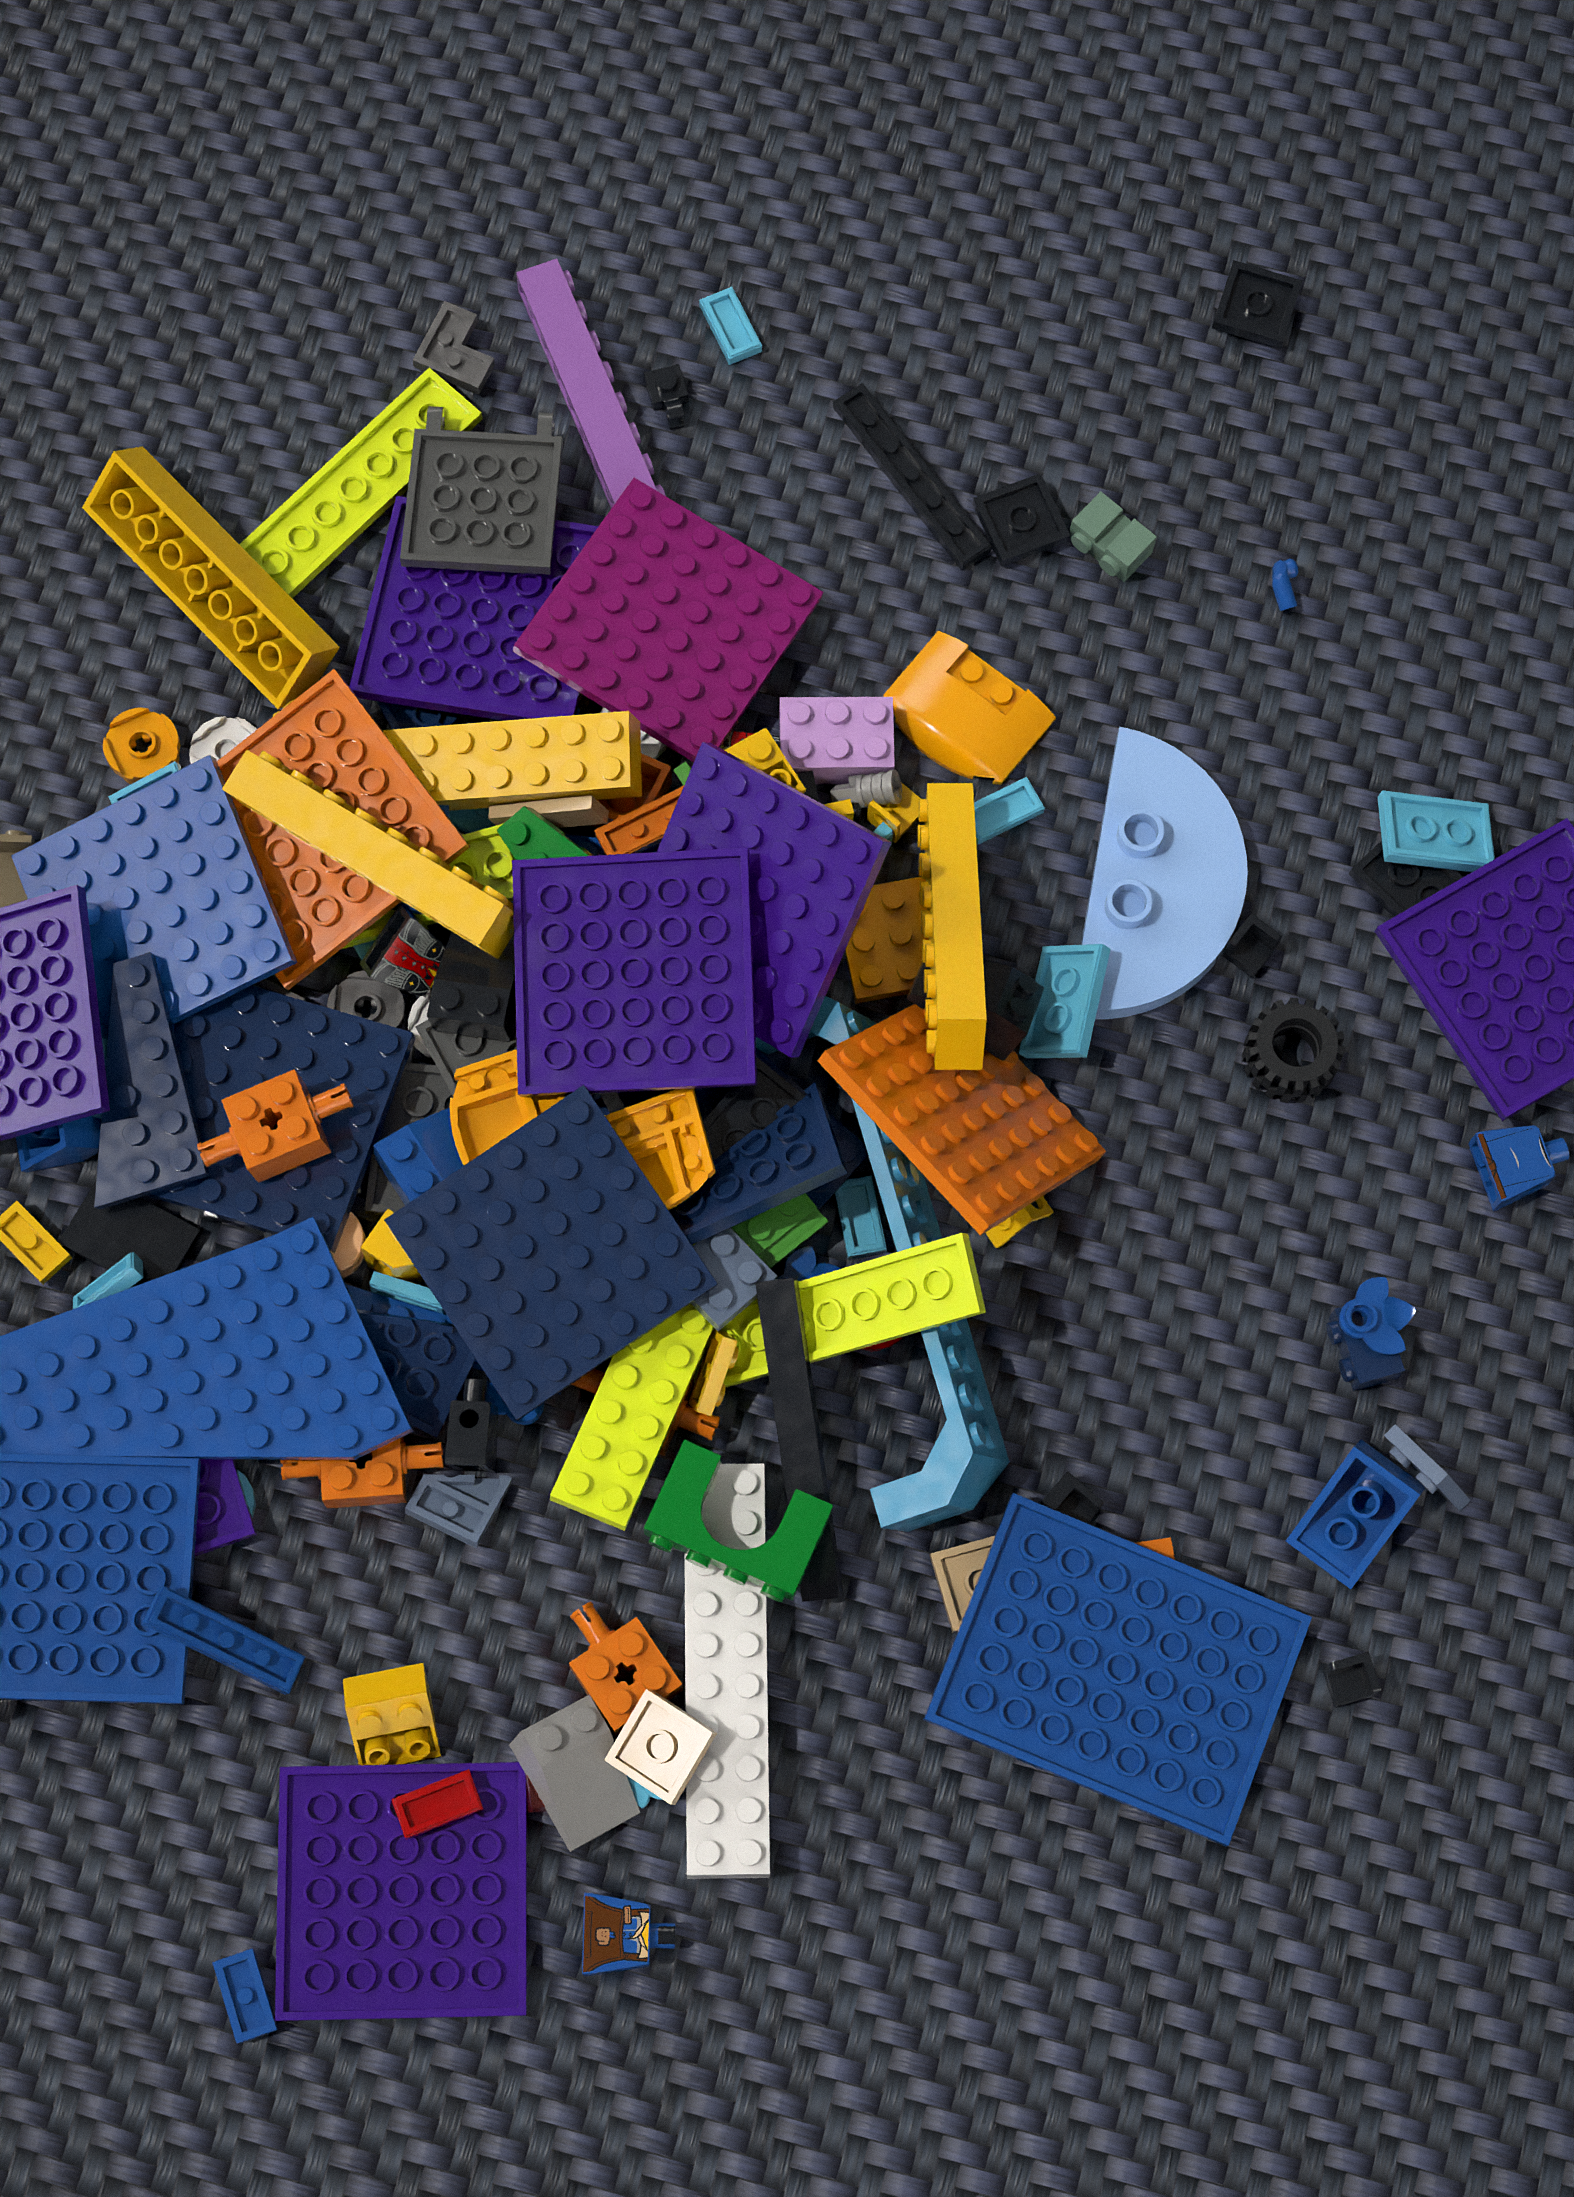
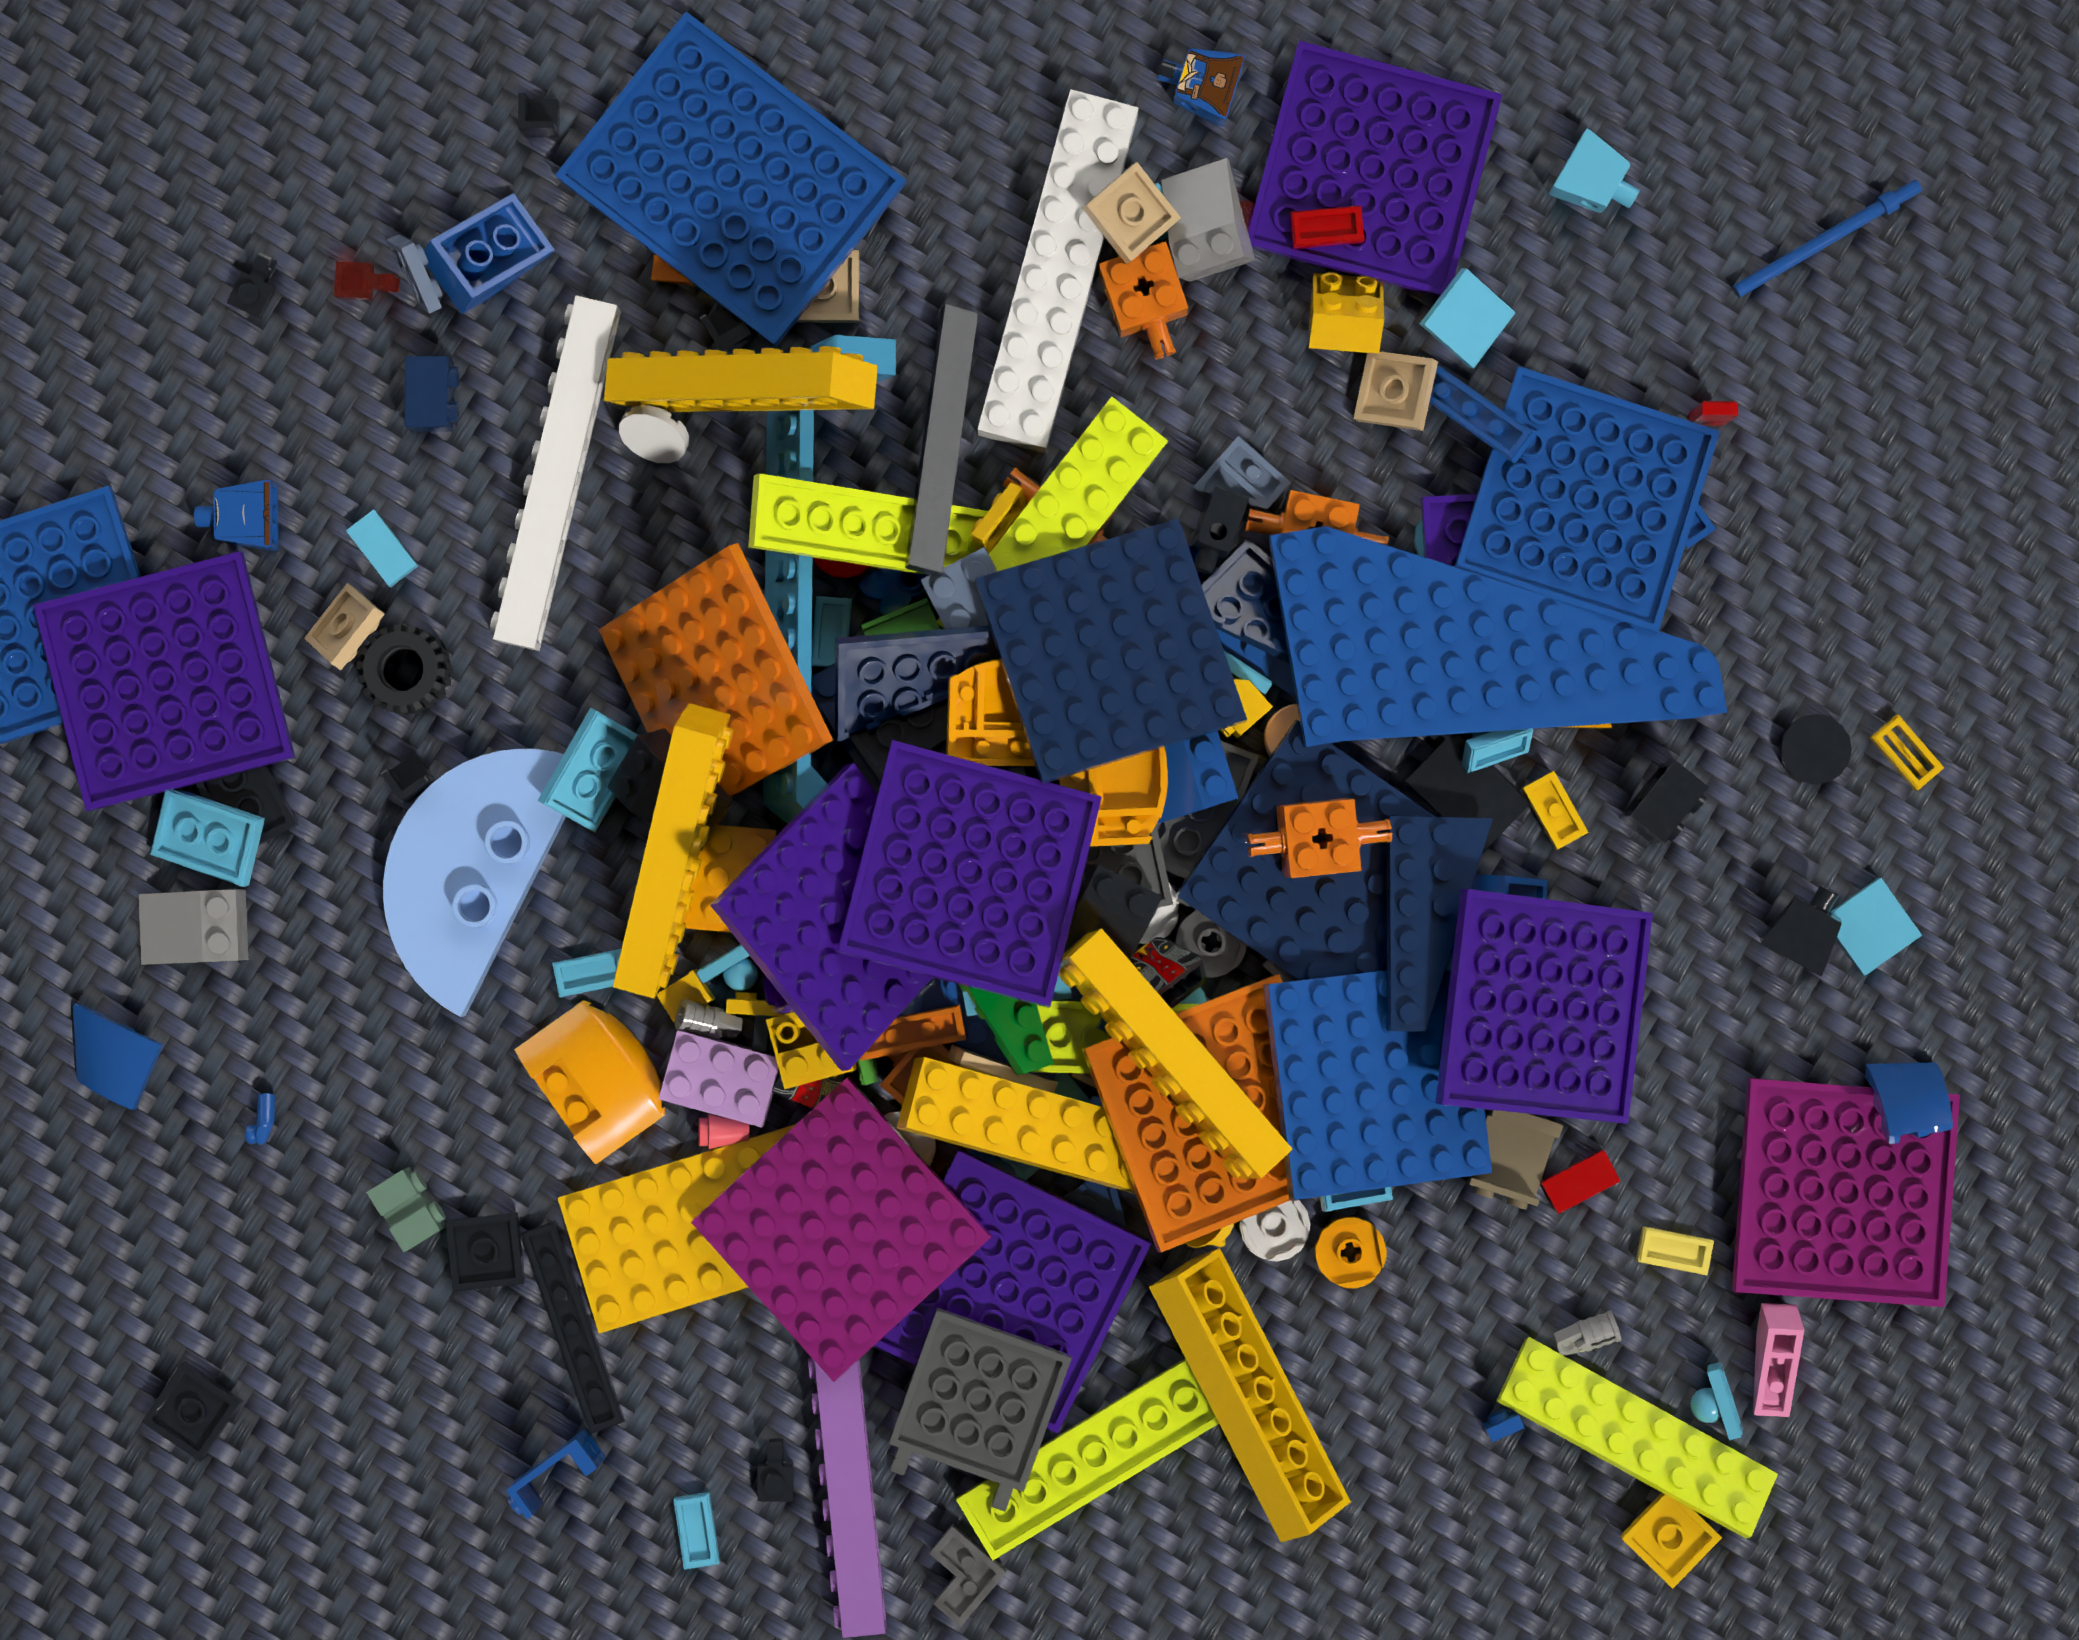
camera: 160 degrees left, 15 degrees up
(146, 1955) = (1594, 176): none -> medium azure torso
(245, 1996) = (1521, 122): blue plate -> none
(253, 1749) = (1467, 318): none -> medium azure tile
(313, 1642) = (1395, 390): none -> tan plate
(774, 1565) = (994, 332): green arch -> none
(824, 685) = (721, 1131): none -> coral cone
(869, 360) = (583, 1451): none -> blue panel
(875, 580) = (639, 1239): none -> yellow plate
(1030, 1417) = (743, 380): none -> yellow brick
(1112, 1363) = (653, 434): none -> white tile
(1203, 1301) = (556, 473): none -> white brick
(1360, 1173) = (382, 548): none -> medium azure tile
(1370, 1075) = (344, 626): none -> tan plate
(1381, 1317) = (410, 404): blue plate -> none
(1417, 744) = (193, 926): none -> light grey slope
(1454, 598) = (112, 1057): none -> blue slope
(1483, 1442) = (358, 281): none -> clear red plate

